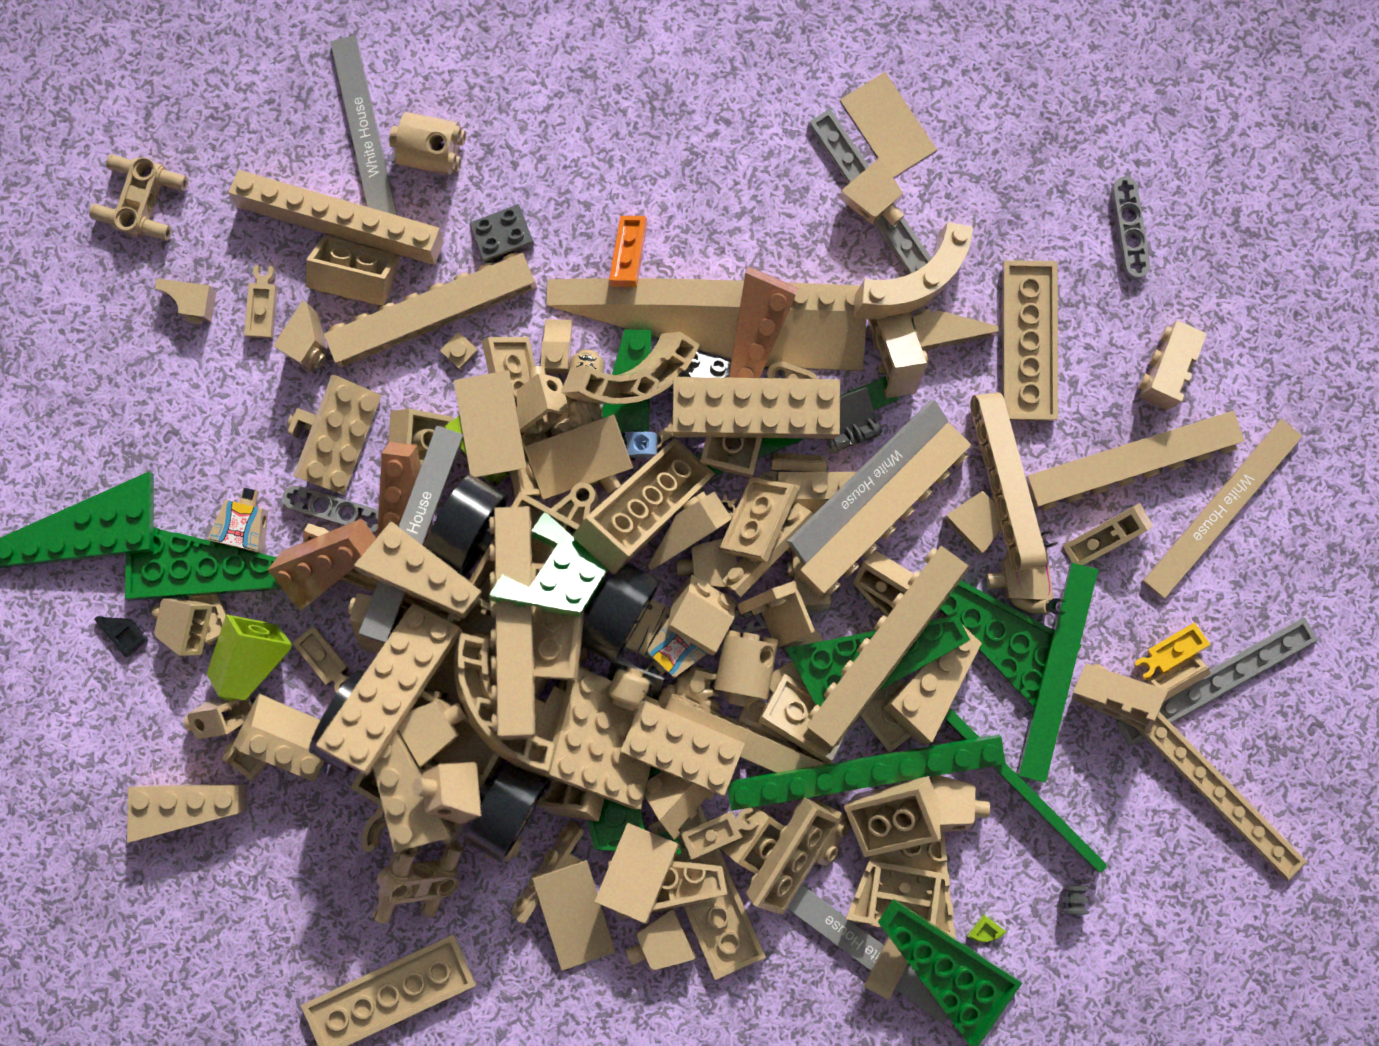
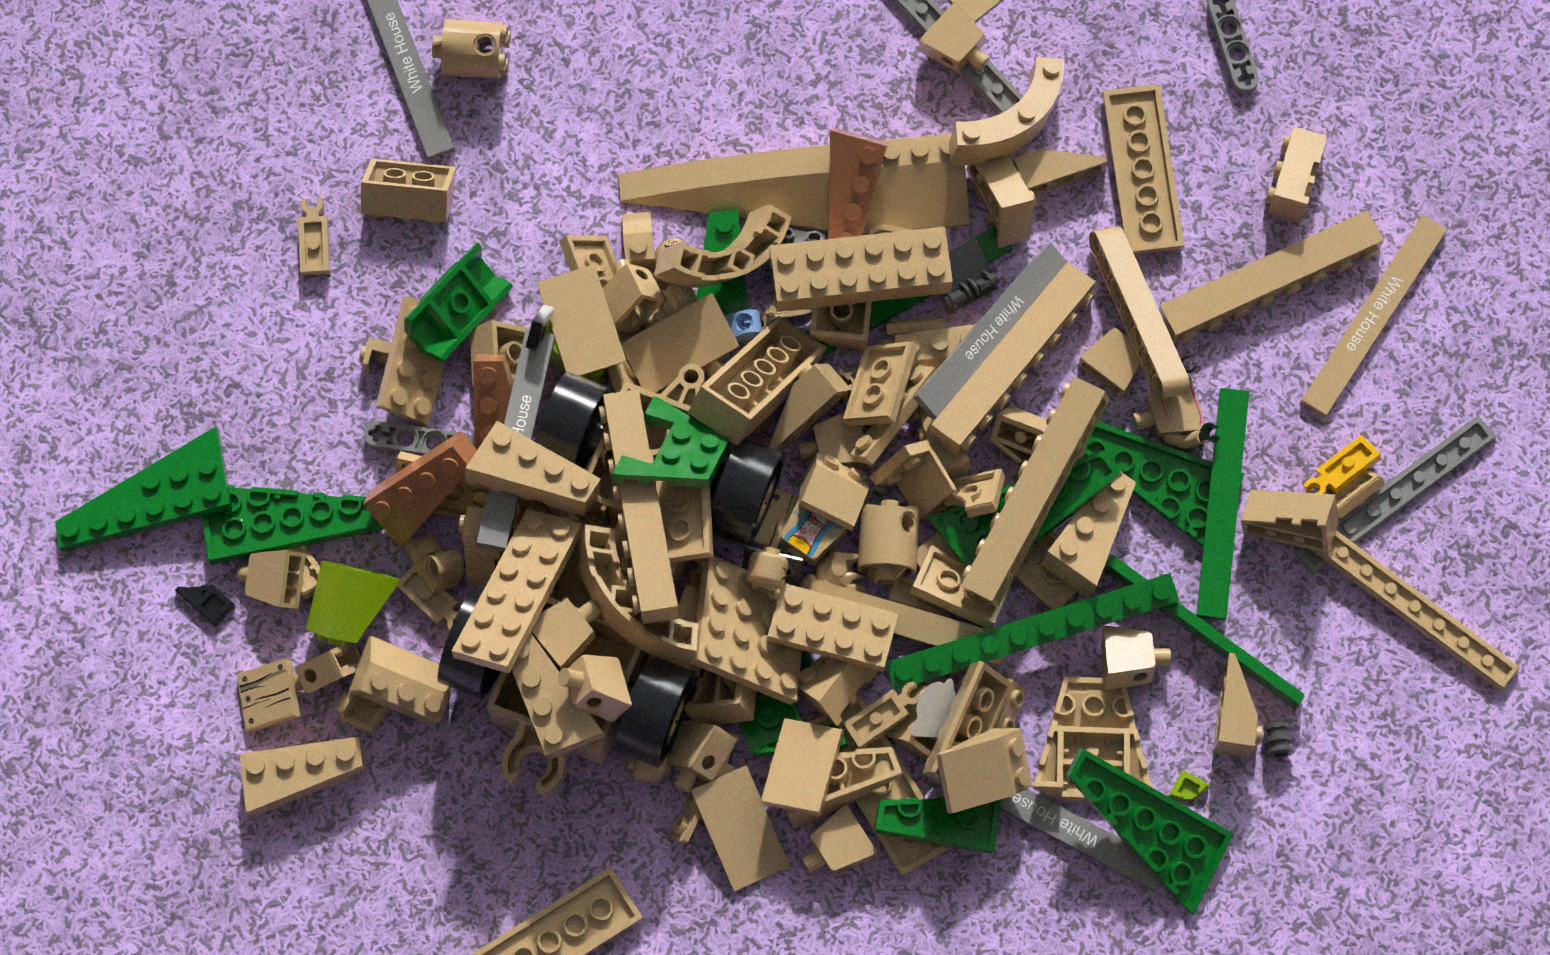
camera: 10 degrees left, 10 degrees down
(138, 197) = (167, 145): tan piece -> none
(164, 731) = (268, 695): none -> tan tile
(193, 300) = (239, 241): tan arch -> none
(241, 523) = (323, 467): torso -> none
(303, 338) = (365, 269): tan slope -> none
(331, 631) = (438, 567): none -> tan plate
(336, 217) = (384, 137): tan brick -> none
(379, 388) = (455, 305): none -> green piece
(417, 882) = (568, 806): tan piece -> none
(430, 309) = (499, 219): tan brick -> none
(447, 428) = (538, 327): none -> black tile
(459, 350) = (533, 260): tan plate -> none
(502, 233) = (563, 132): dark grey hinge -> none
(545, 843) = (699, 752): none -> tan torso
(628, 251) = (701, 131): orange plate -> none
(764, 938) = (929, 822): none -> green wing
(765, 834) = (933, 708): none -> white sticker
(803, 903) = (984, 769): none -> tan slope
(835, 635) = (978, 492): none -> tan tile
(886, 971) = (1086, 837): tan tile -> none
(895, 817) = (1070, 673): tan slope -> none
(1040, 877) = (1236, 716): none -> tan slope
(1108, 535) = (1257, 356): tan slope -> none

